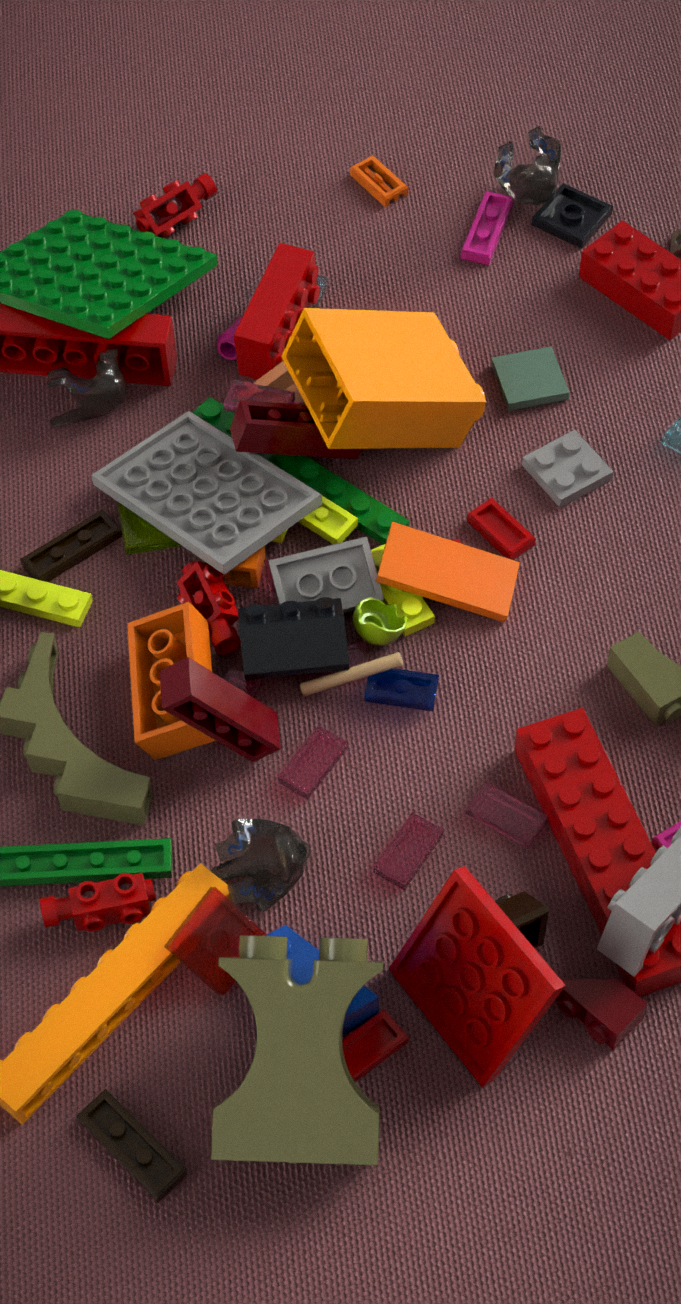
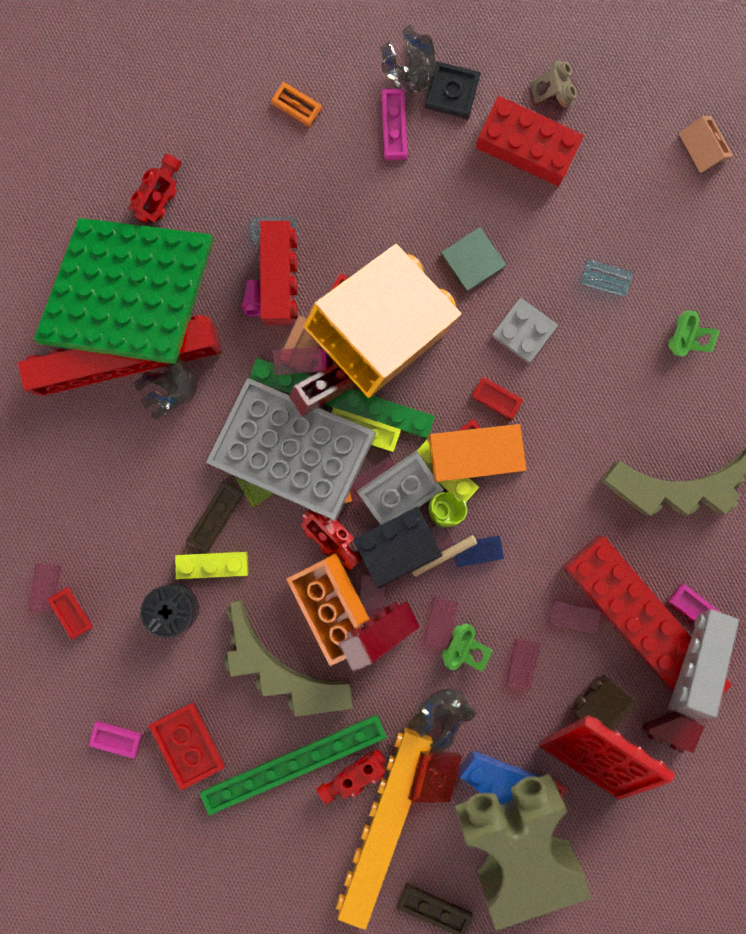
camera: 20 degrees left, 30 degrees up
(330, 793) = (461, 647): none -> bright green bracket

